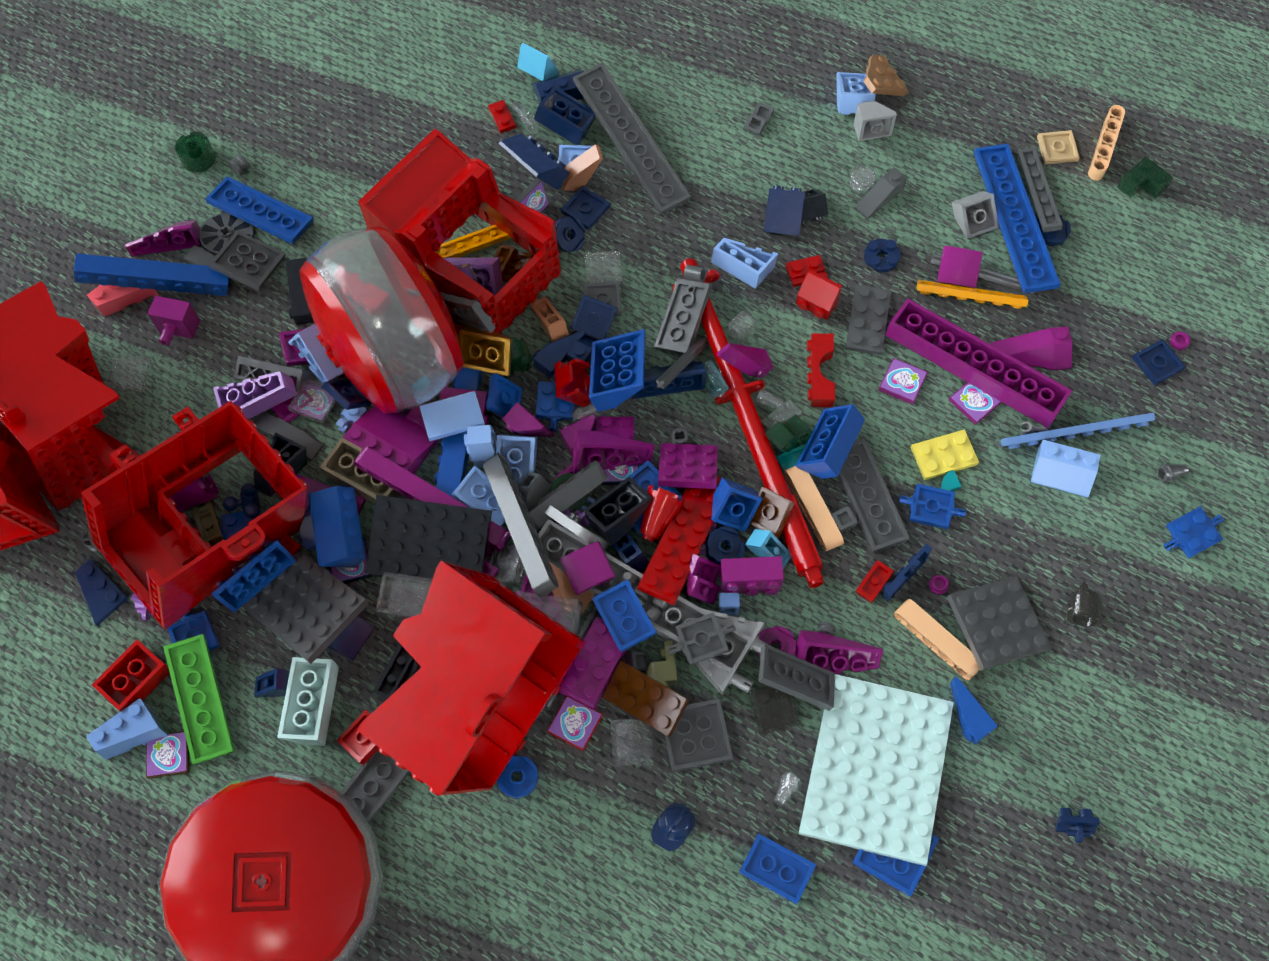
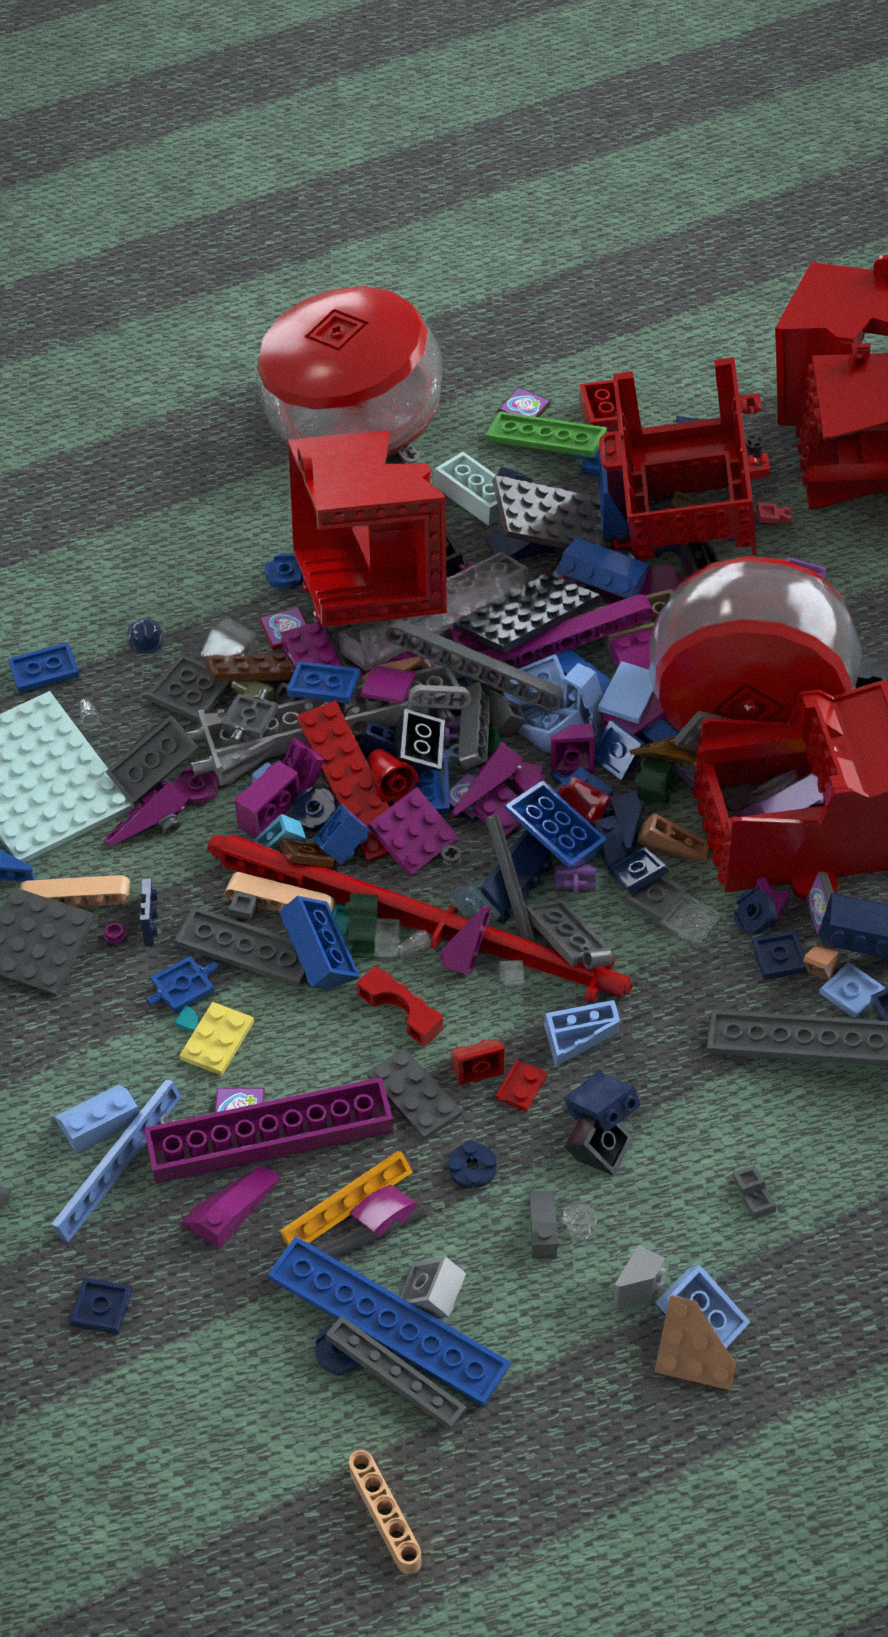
camera: 130 degrees right, 15 degrees down
(126, 730) = (563, 391): medium blue wedge -> none
(874, 581) = (169, 890): red plate -> none
(903, 381) = (321, 1067): tile -> none
(1058, 147) = (432, 1462): tan tile -> none
(1145, 176) = (299, 1506): clear green brick -> none
(1180, 341) = (99, 1349): magenta tile -> none

